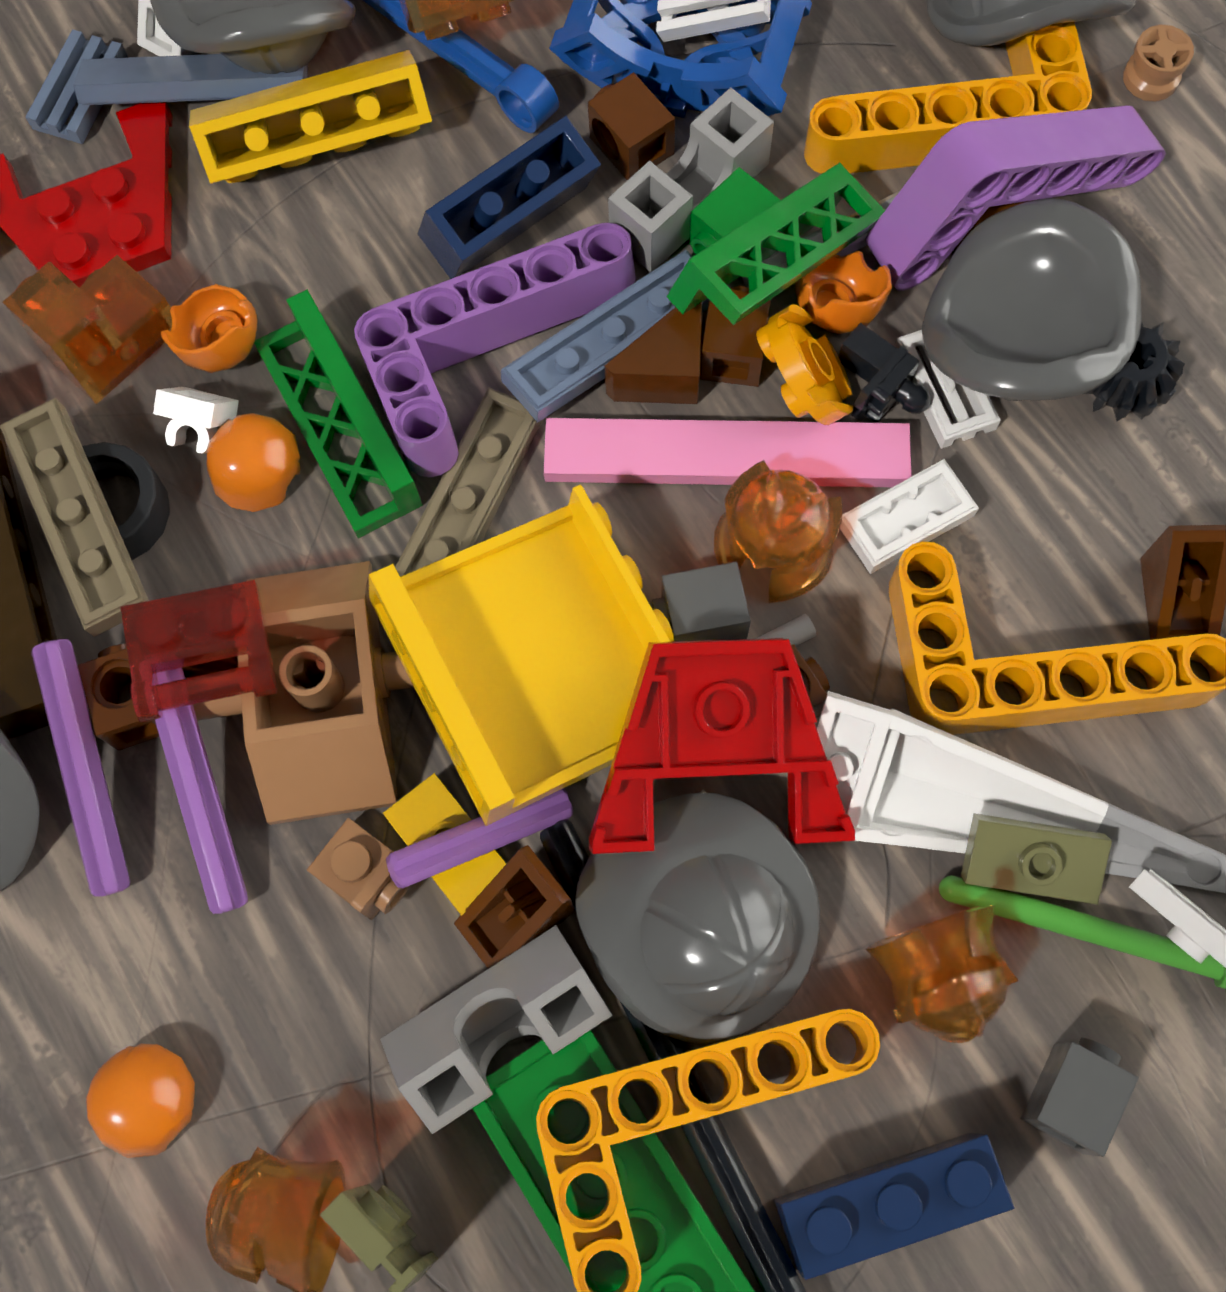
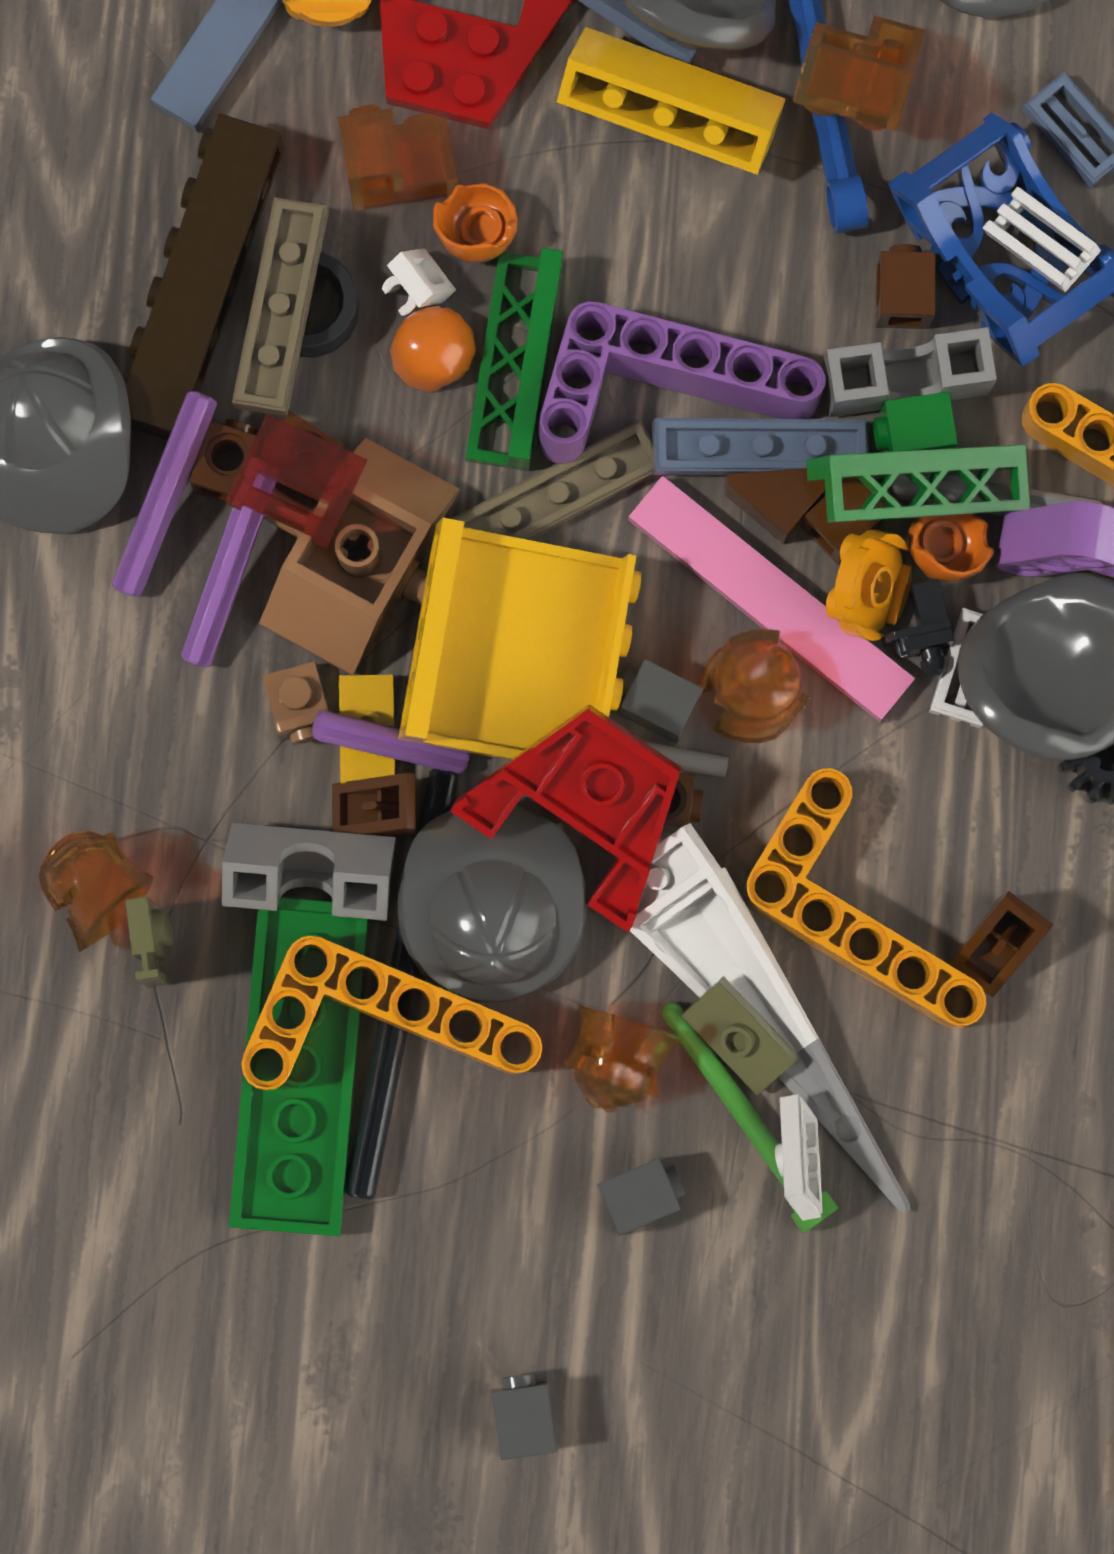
camera: 30 degrees right, 10 degrees up
(140, 1100) = (54, 744): orange hair -> none
(508, 198) = (763, 285): dark blue brick -> none
(893, 1204) = (469, 1164): dark blue brick -> none
(907, 515) = (856, 744): white plate -> none

